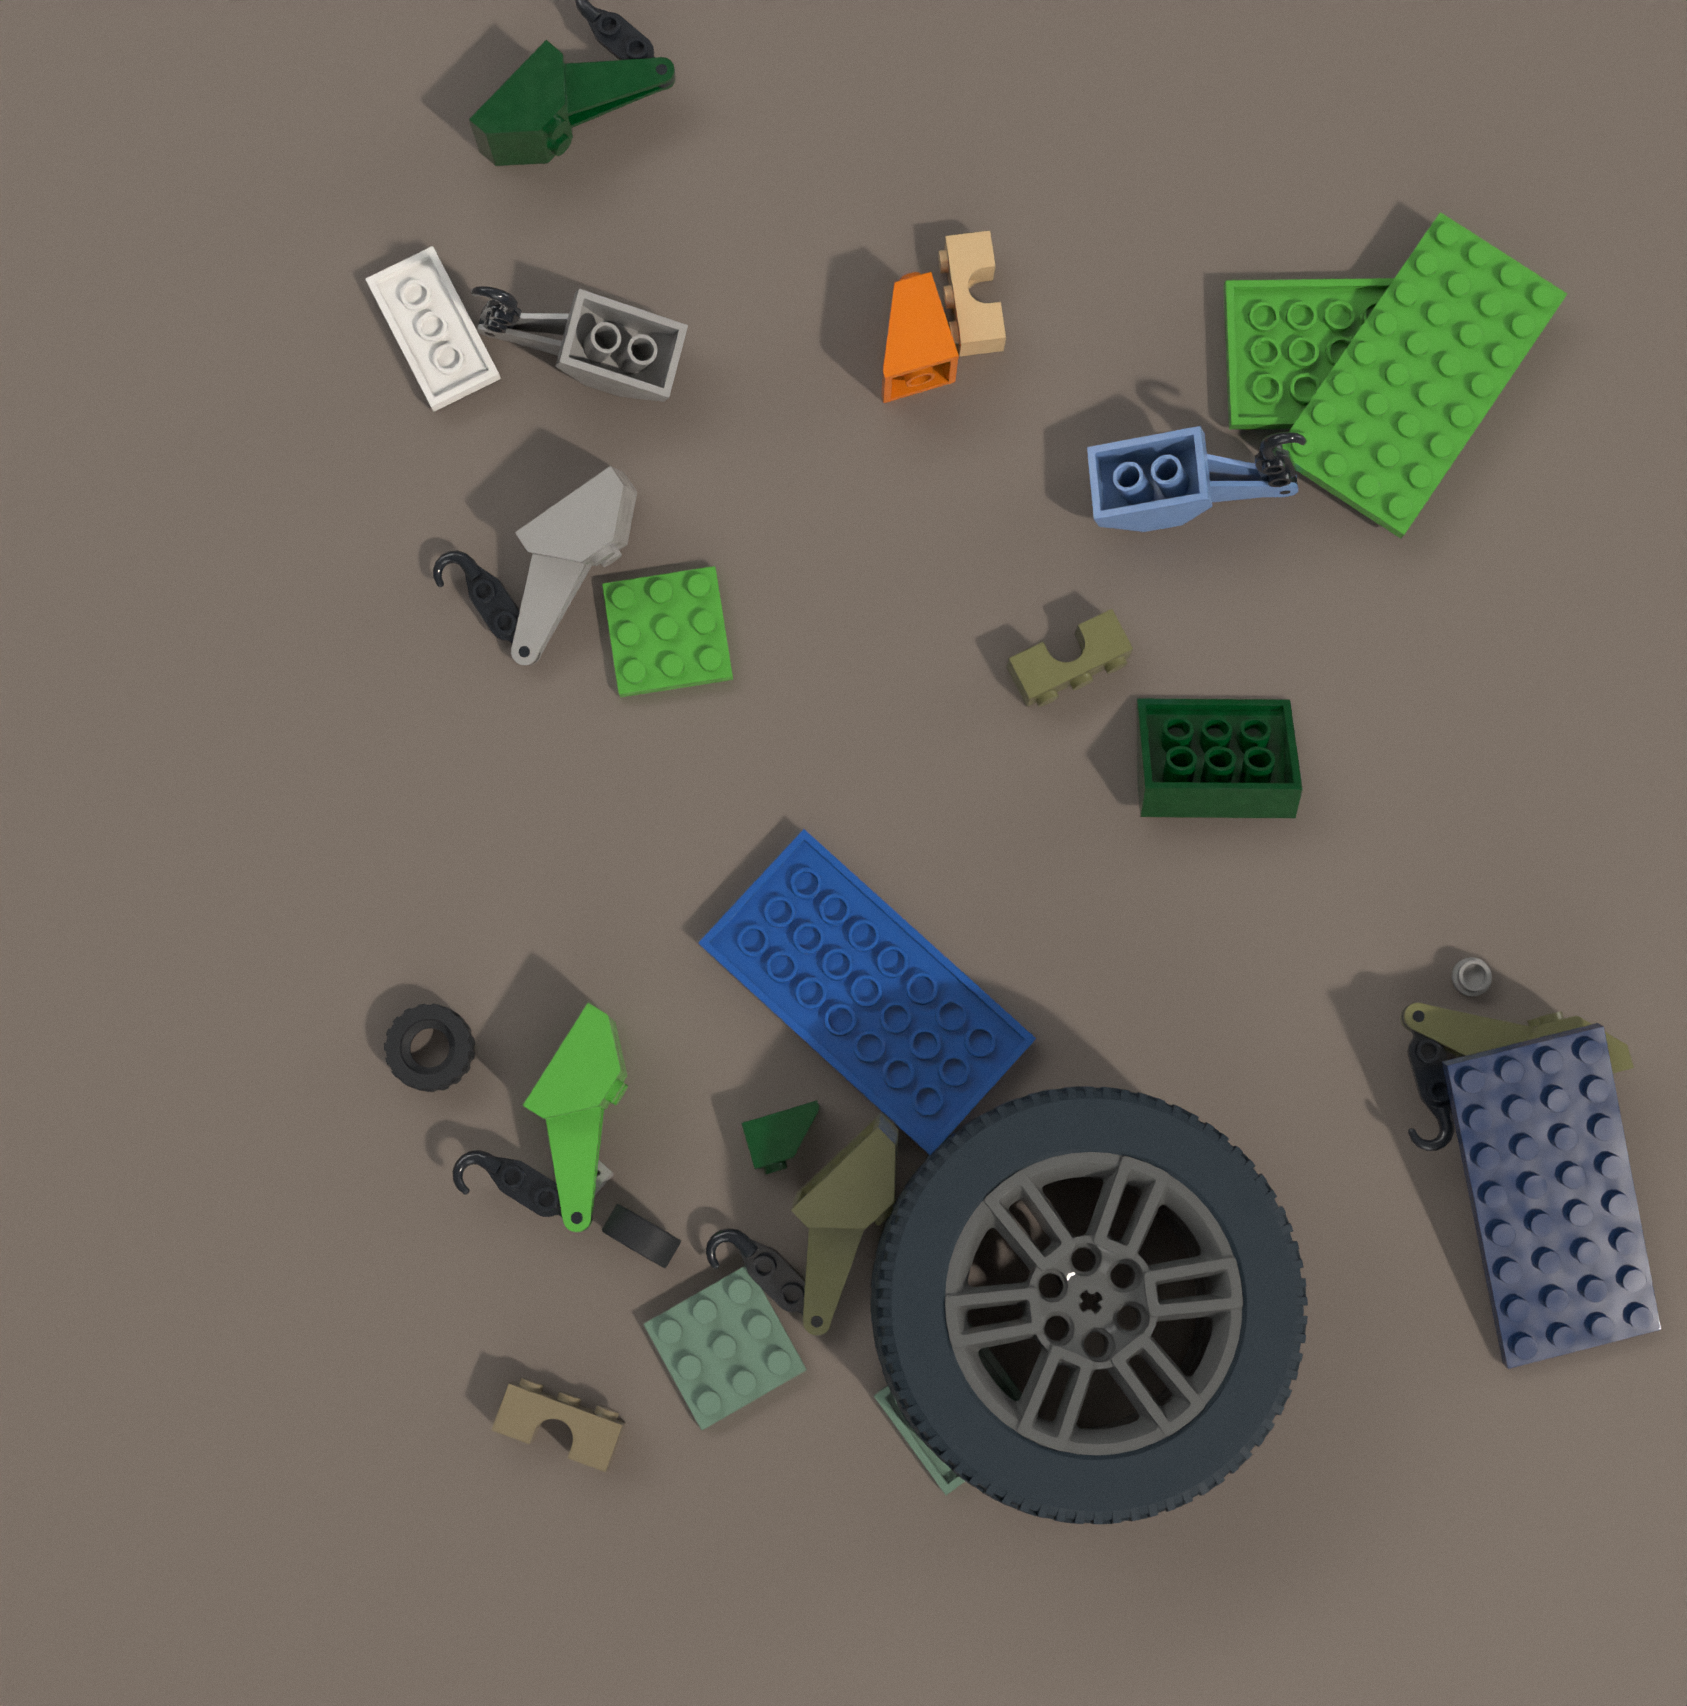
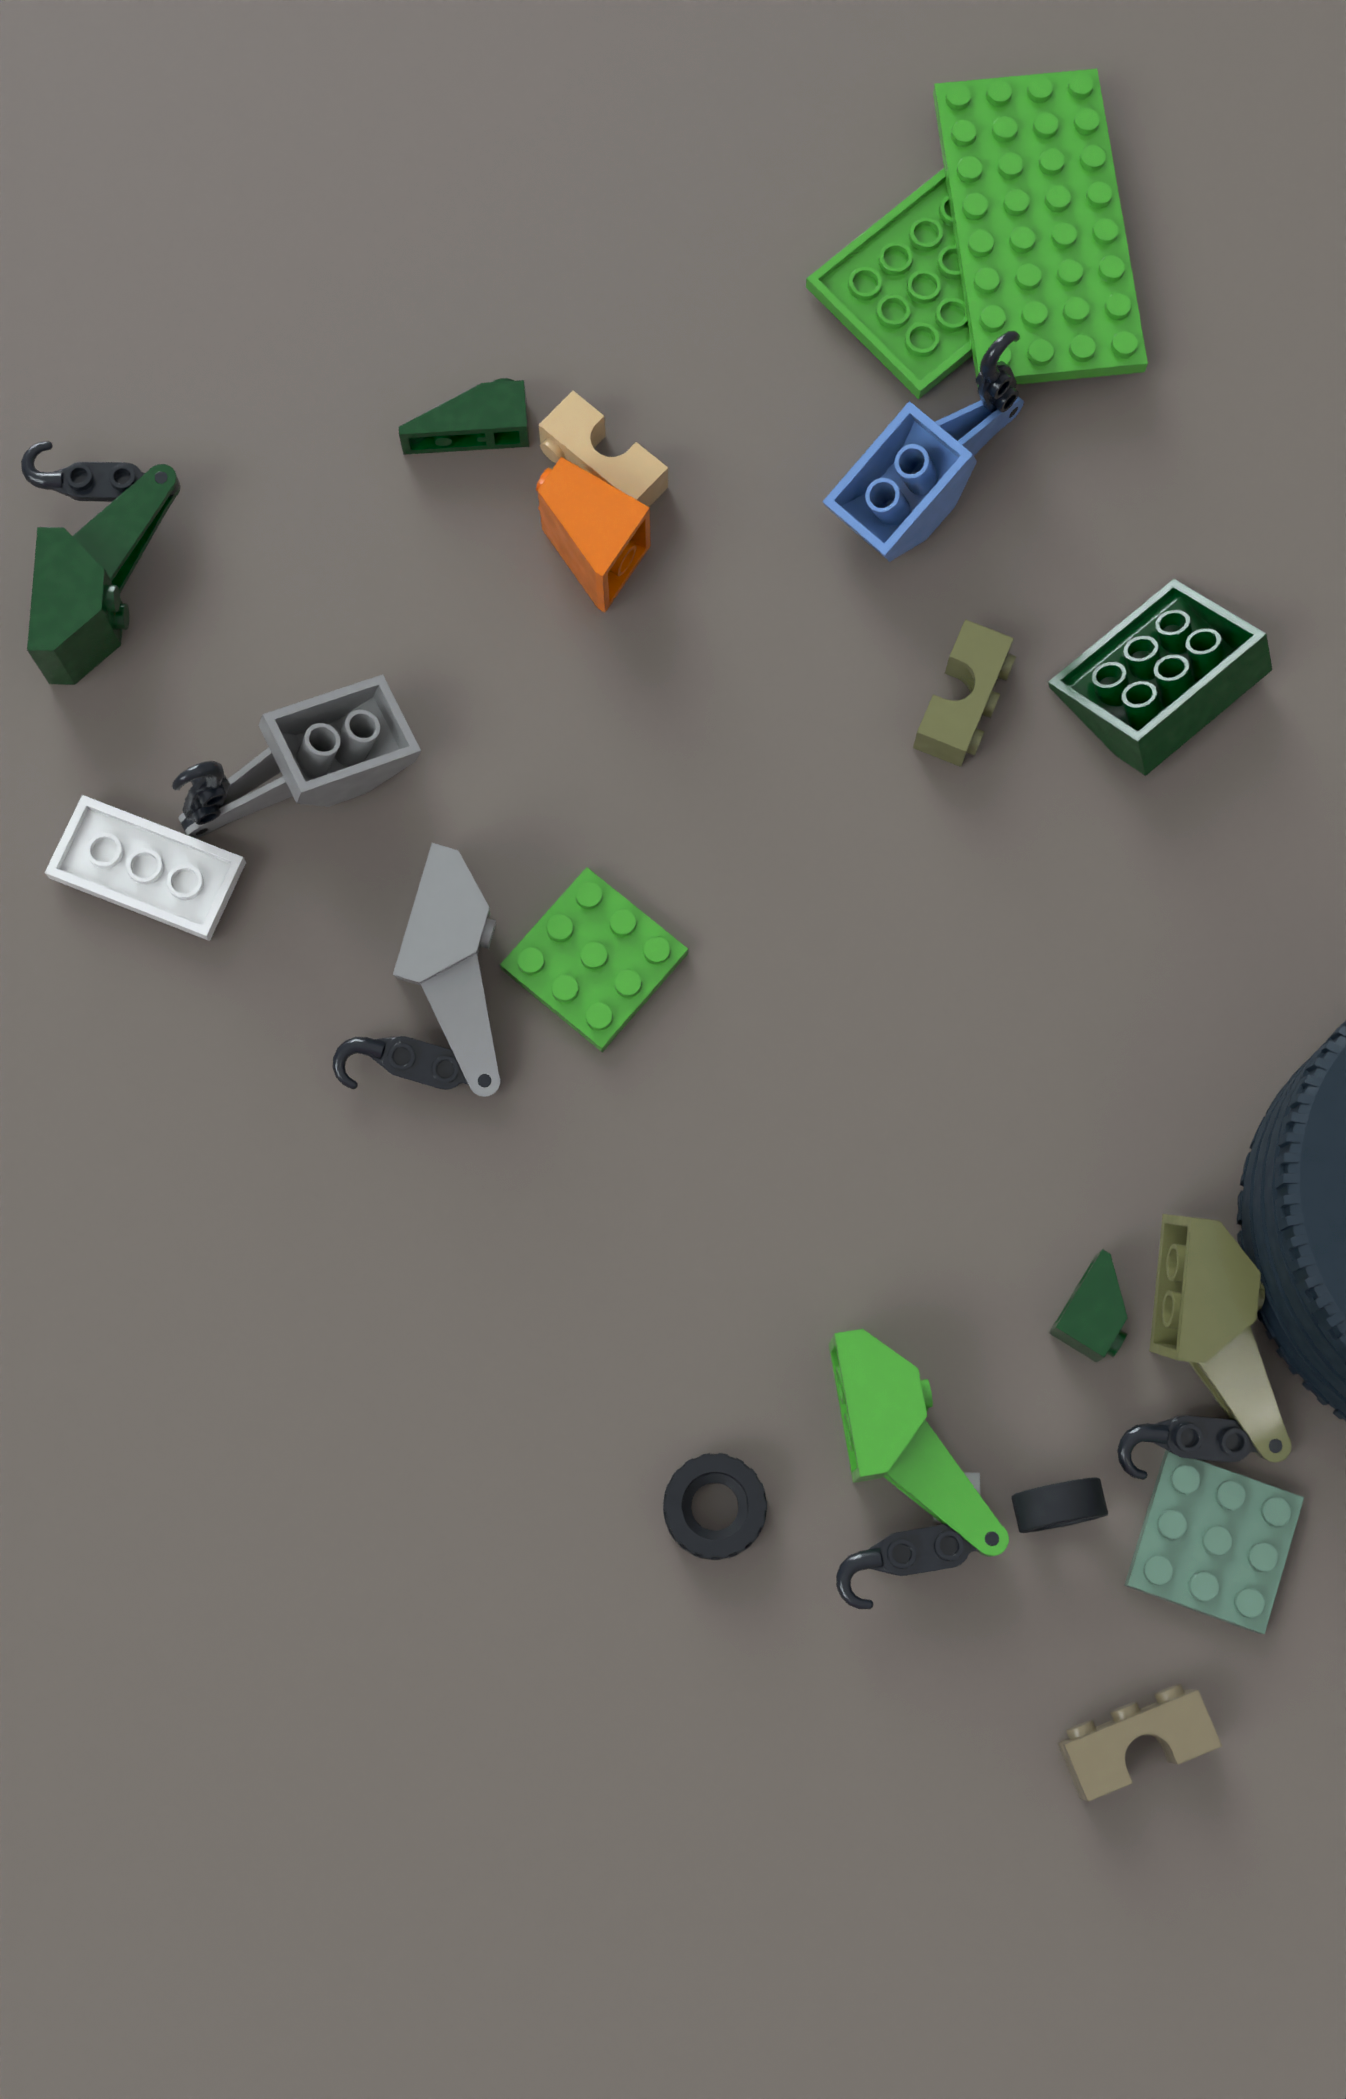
camera: 40 degrees left, 5 degrees down
(867, 991) = (1052, 1122): blue plate -> none
(909, 196) = (478, 419): none -> dark green slope

